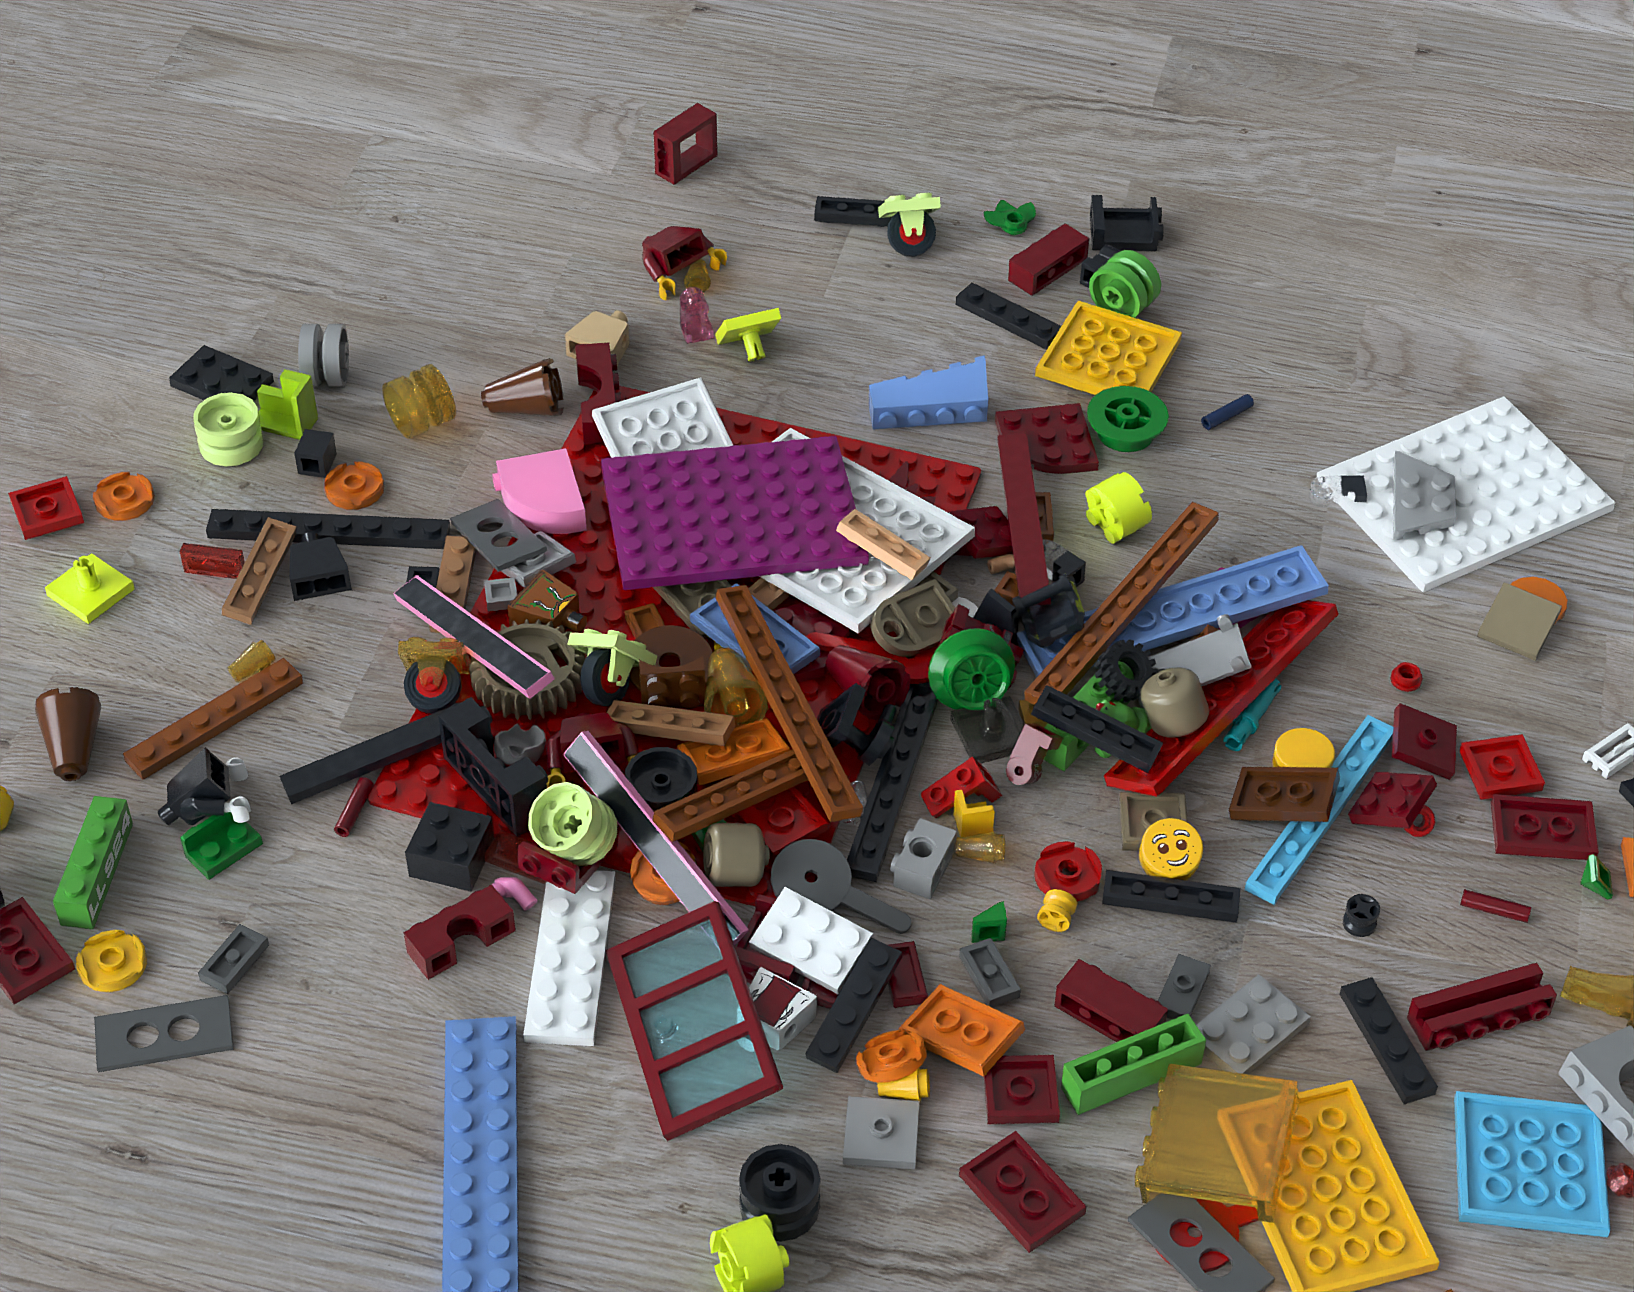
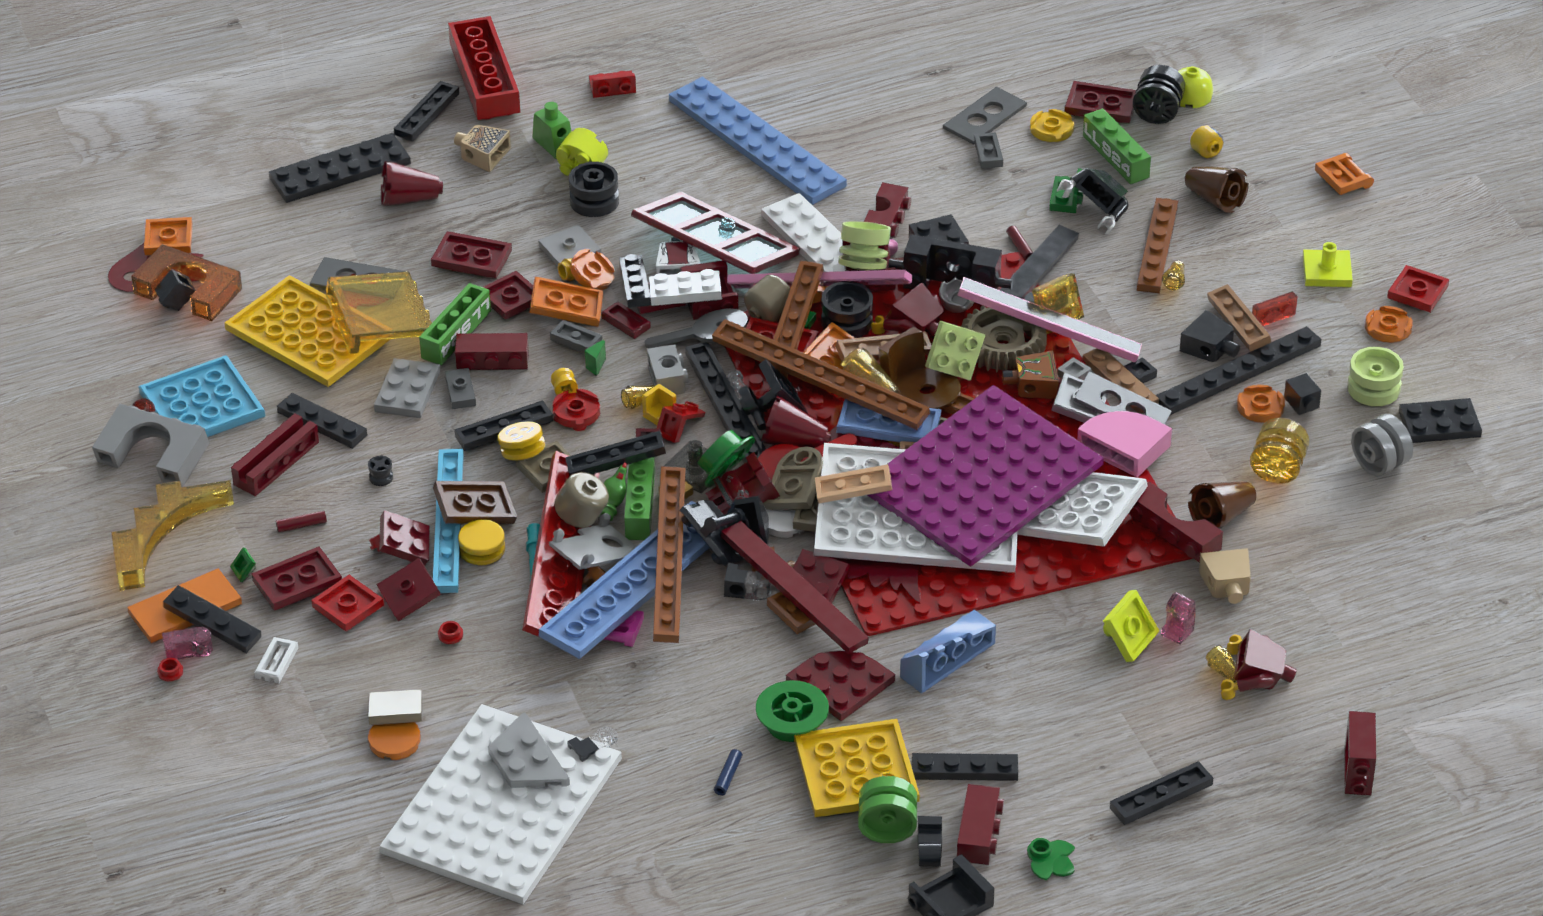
camera: 145 degrees right, 5 degrees down
(288, 409) = (1357, 408): lime panel -> none
(911, 226) = (1114, 776): plate -> none
(1113, 677) = (627, 496): black tyre -> none
(1117, 506) = (736, 630): neon yellow brick -> none

